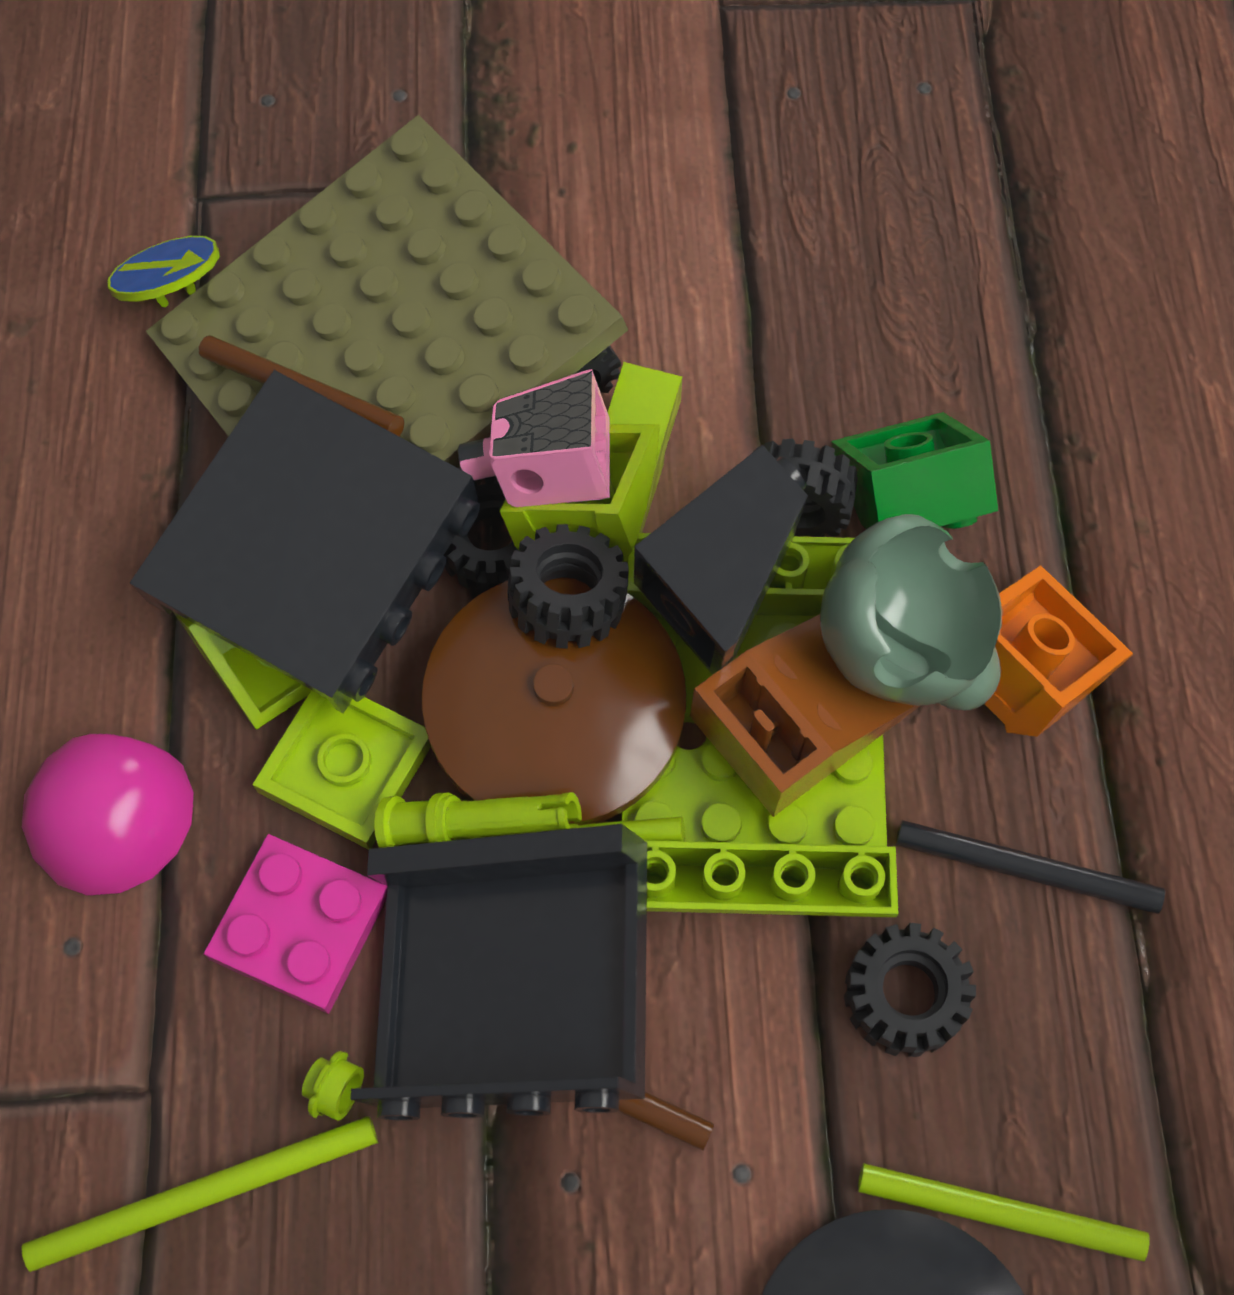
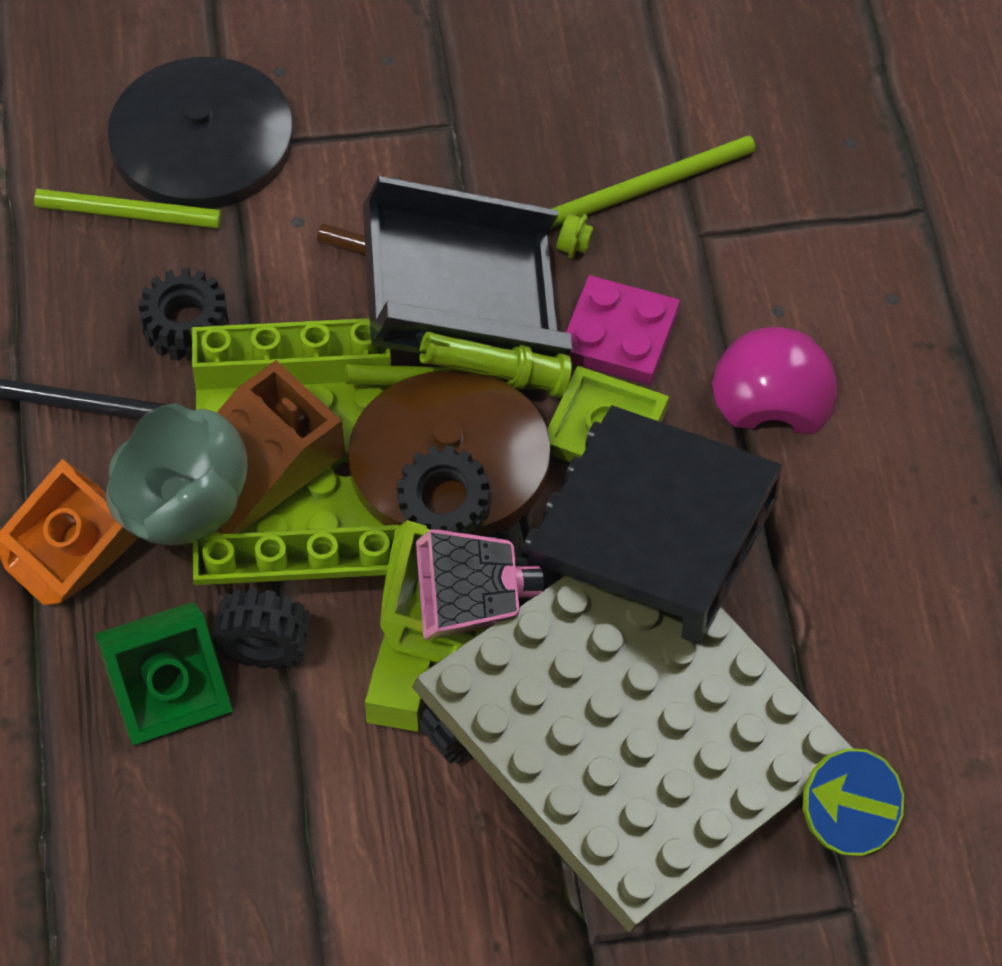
camera: 175 degrees right, 10 degrees down
(260, 369) = (691, 646): reddish brown bar -> none
(721, 554) = (324, 495): black slope -> none

